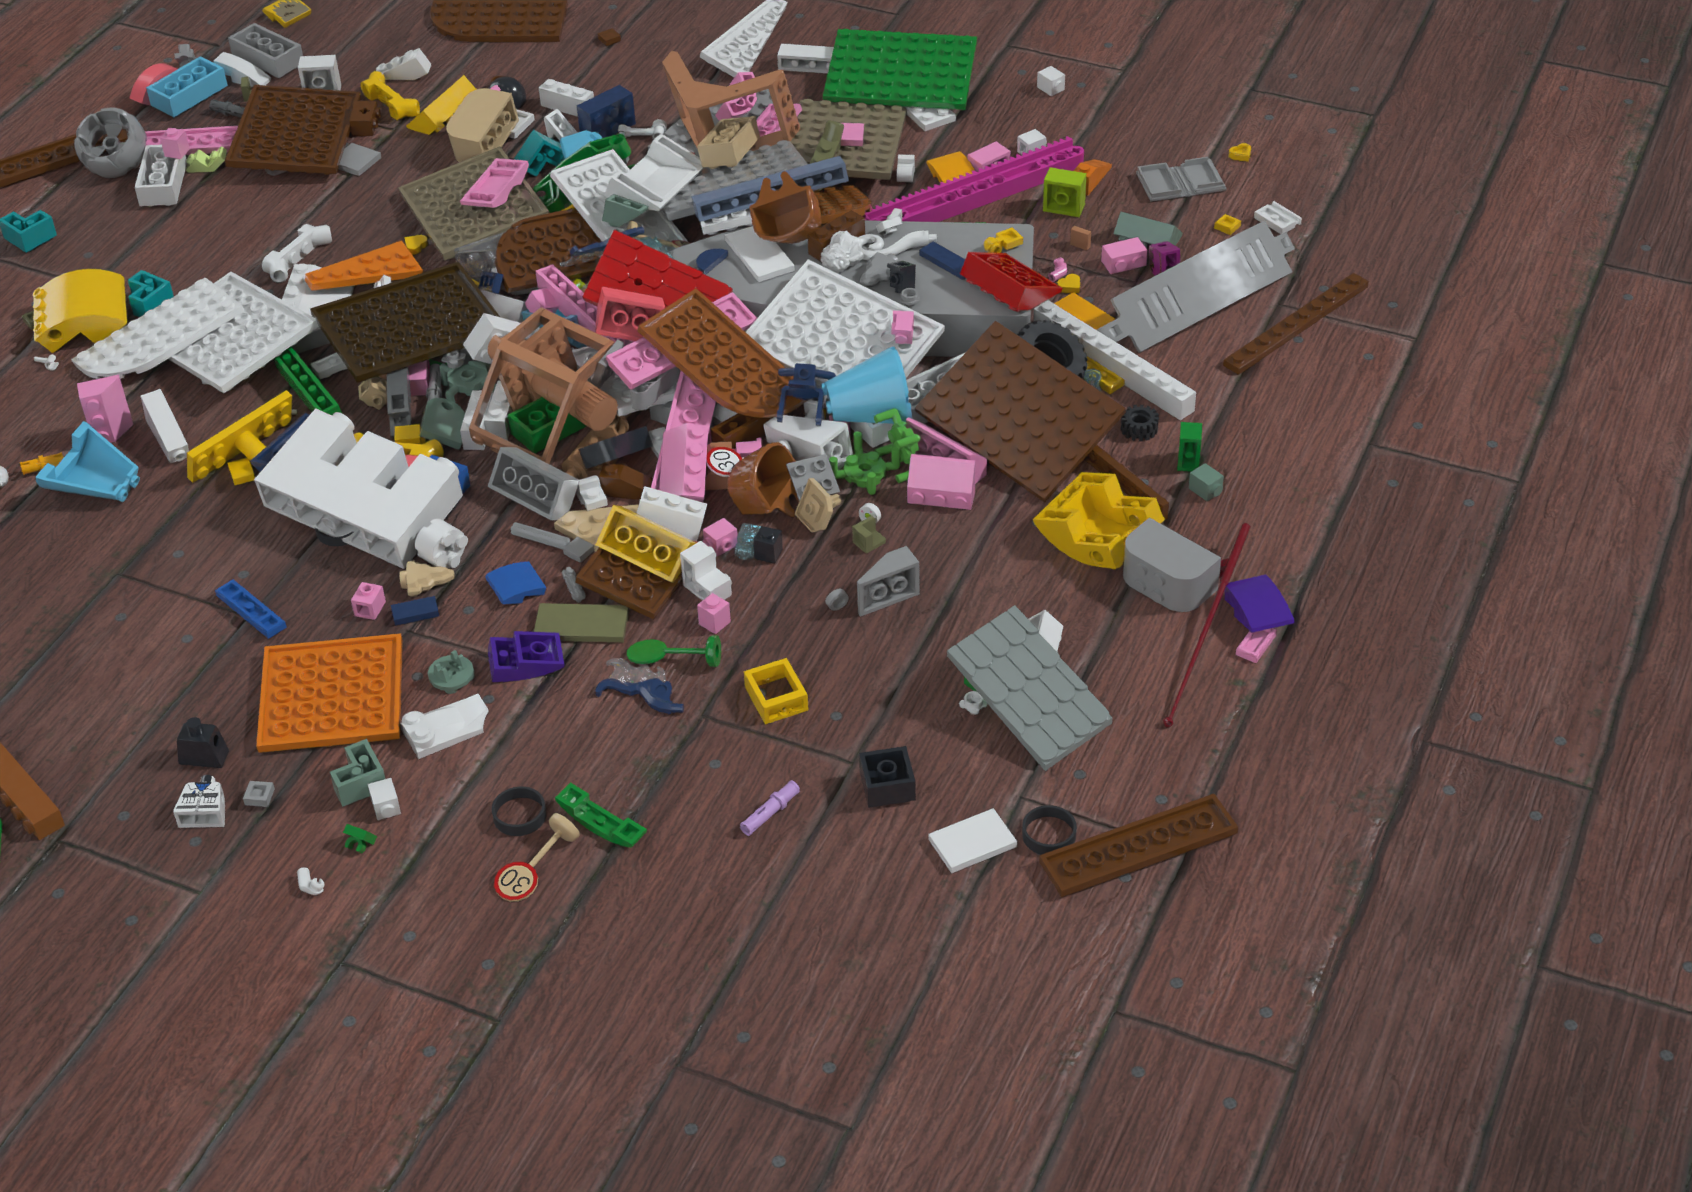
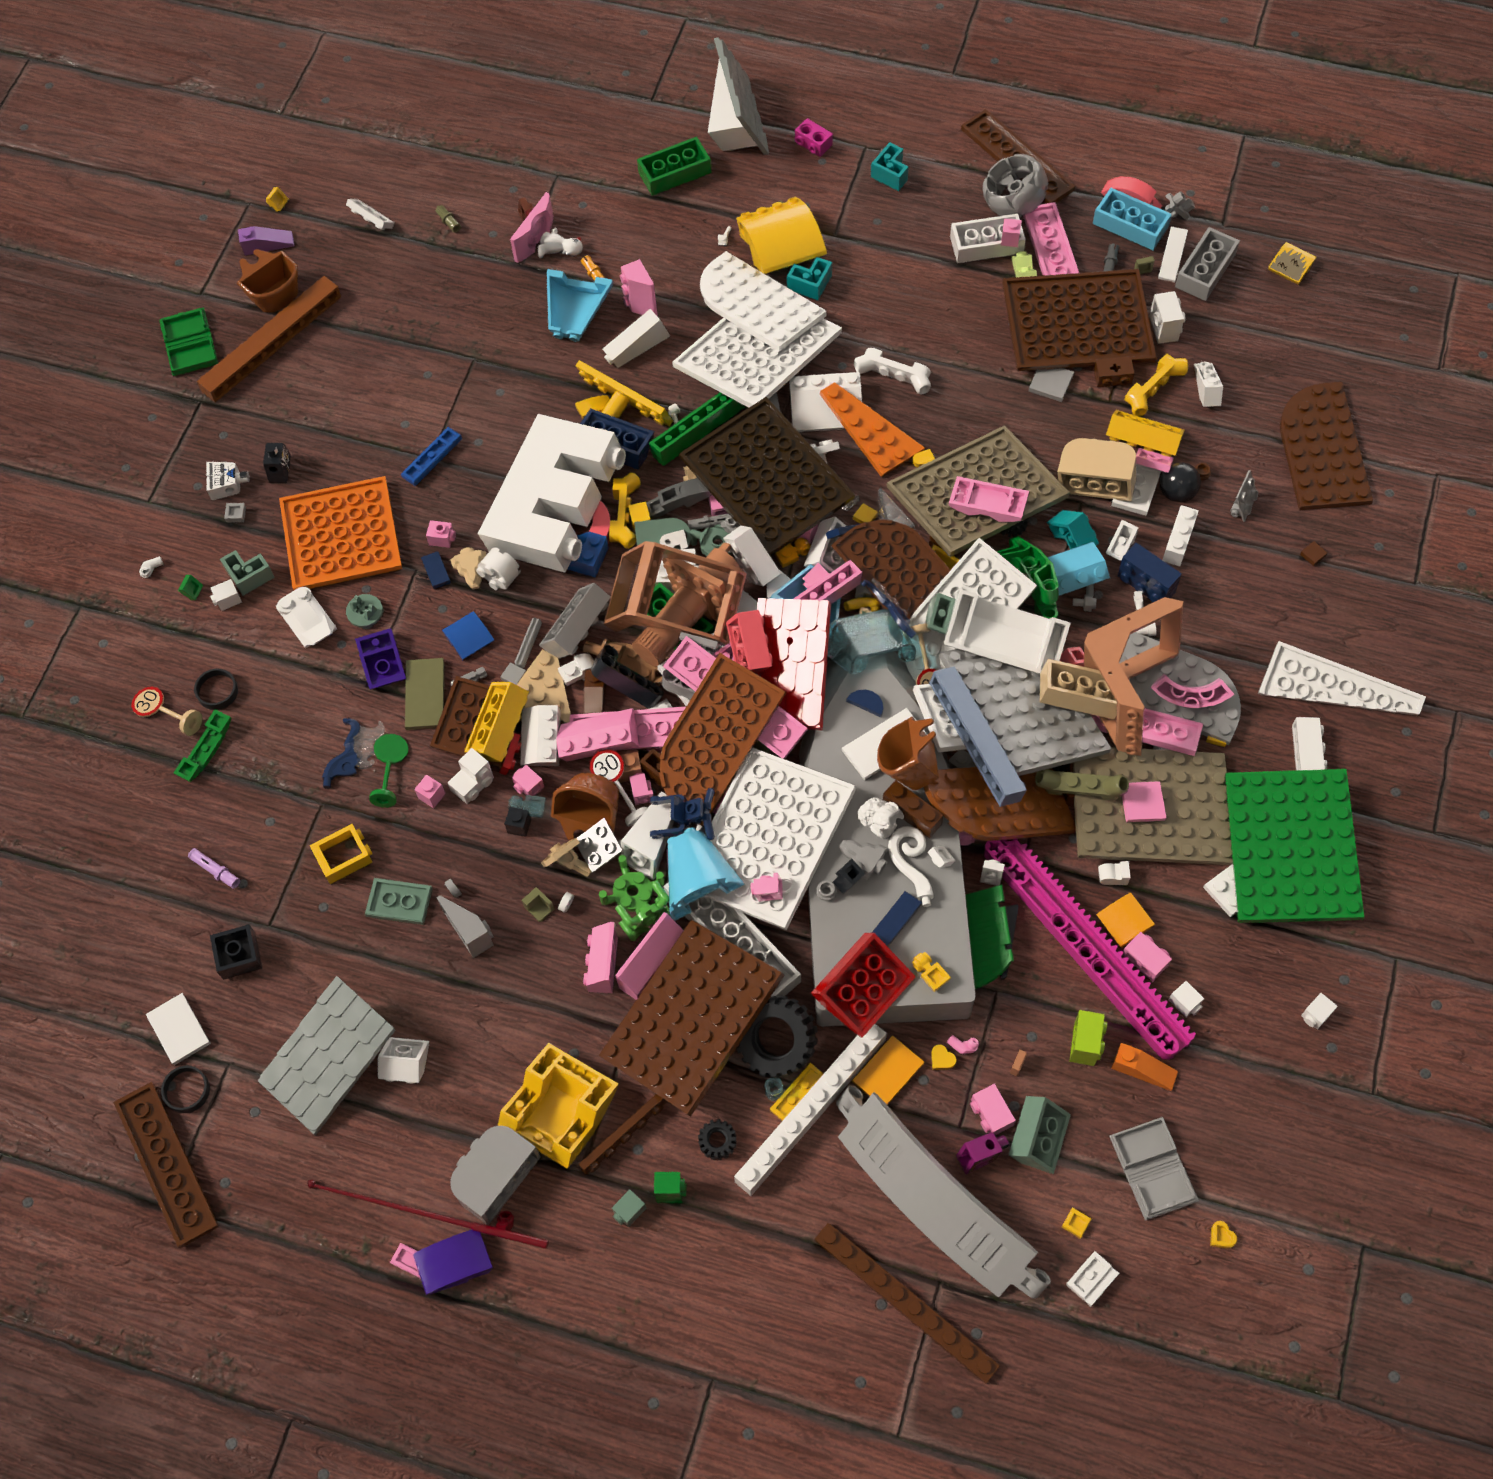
camera: 85 degrees right, 20 degrees up
(455, 406) = (675, 539): none -> white leg
(539, 59) = (1245, 498): none -> light grey hinge
(842, 649) = (398, 901): none -> sand green tile

